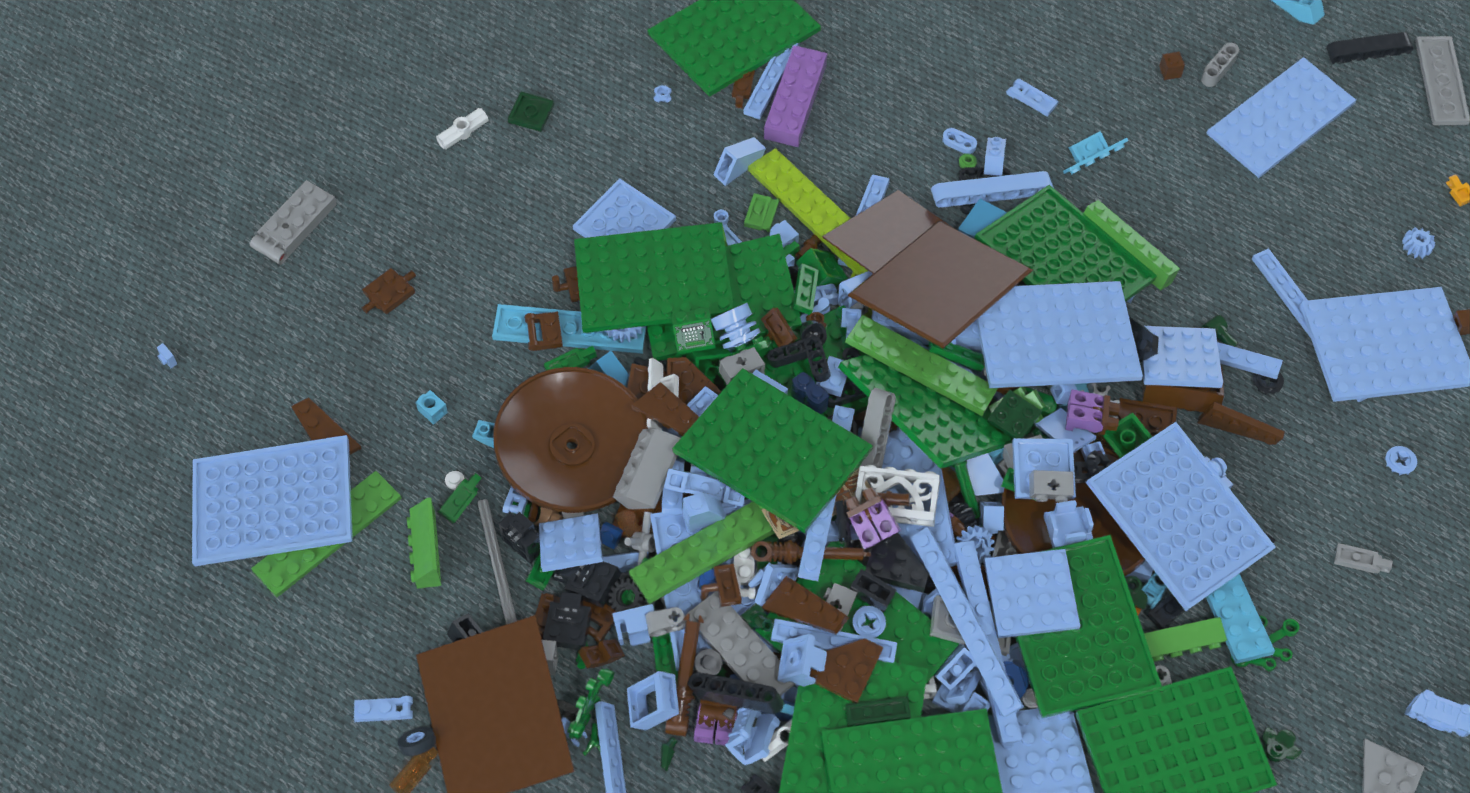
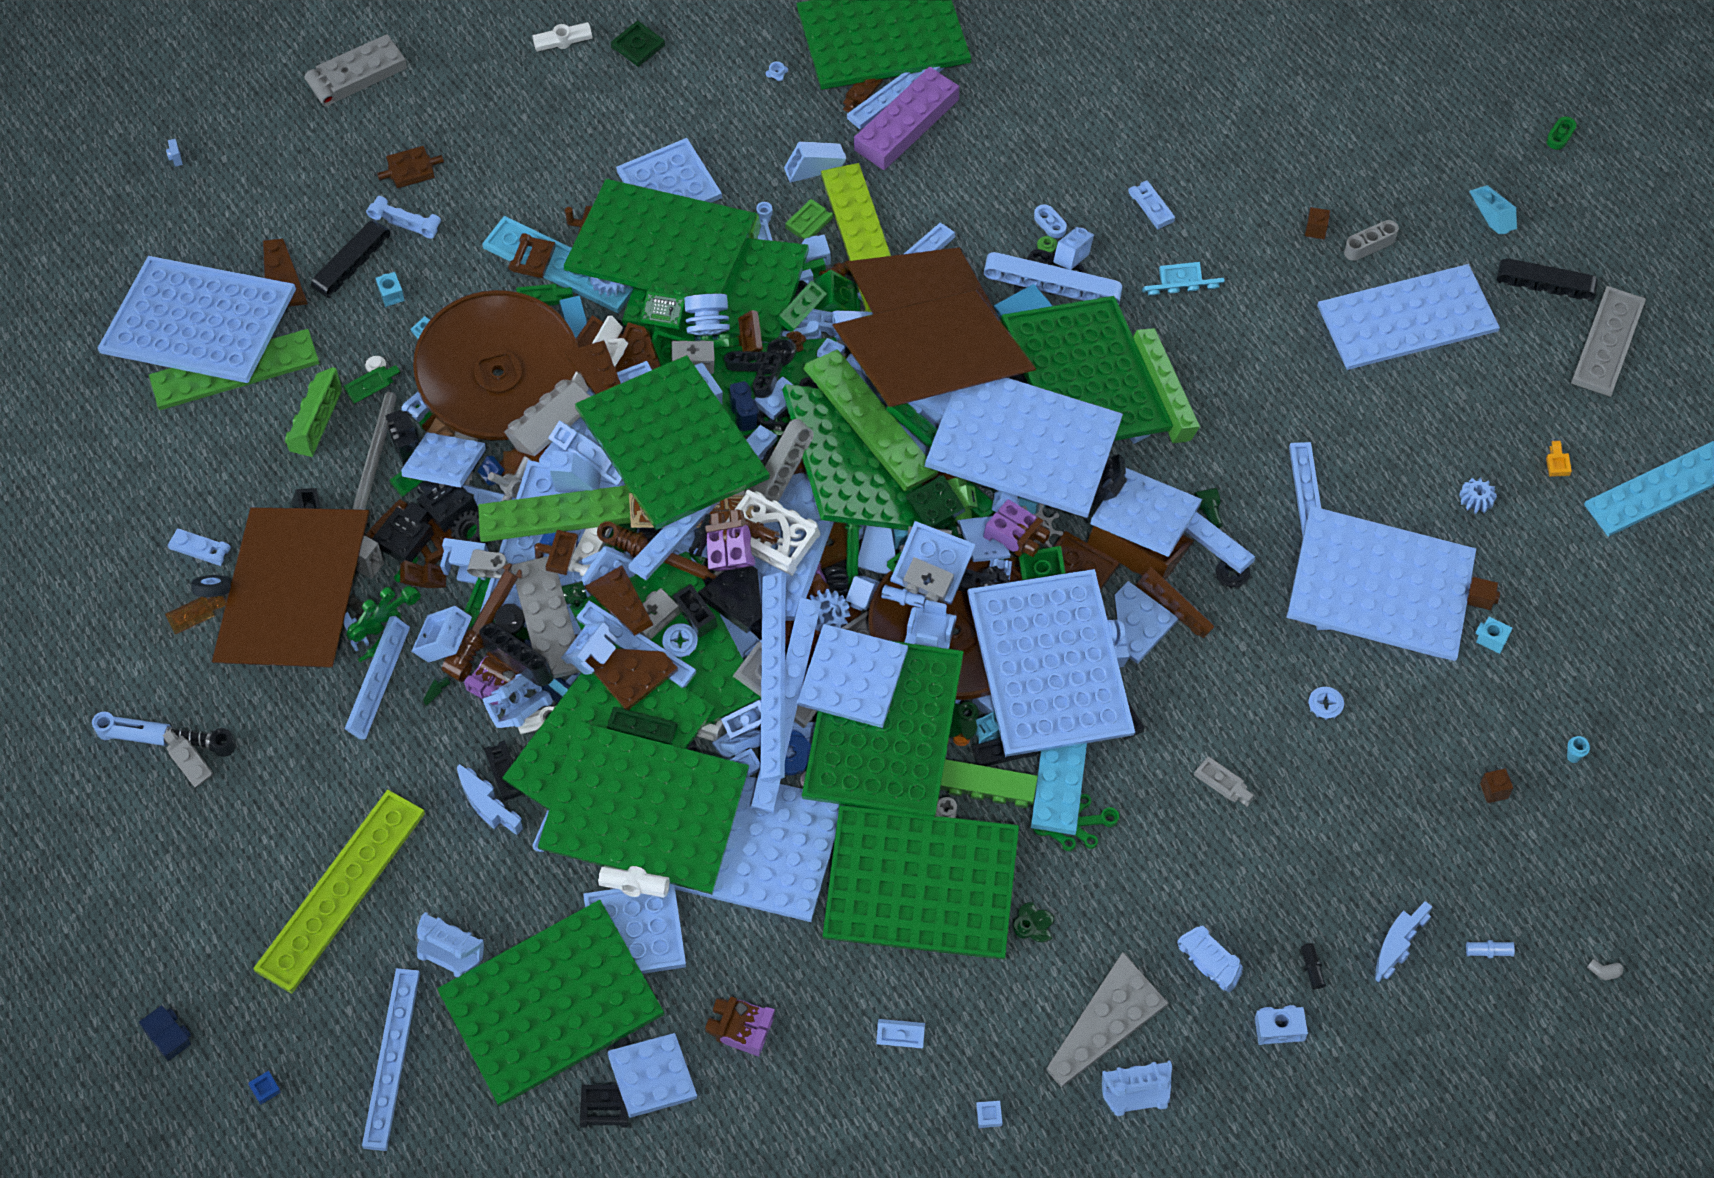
camera: 25 degrees right, 0 degrees up
(379, 393) = (349, 258): none -> black beam
(411, 339) = (403, 219): none -> light blue plate
(1031, 507) = (903, 596): none -> light blue pin
(1220, 443) = (1143, 620): none -> light blue plate

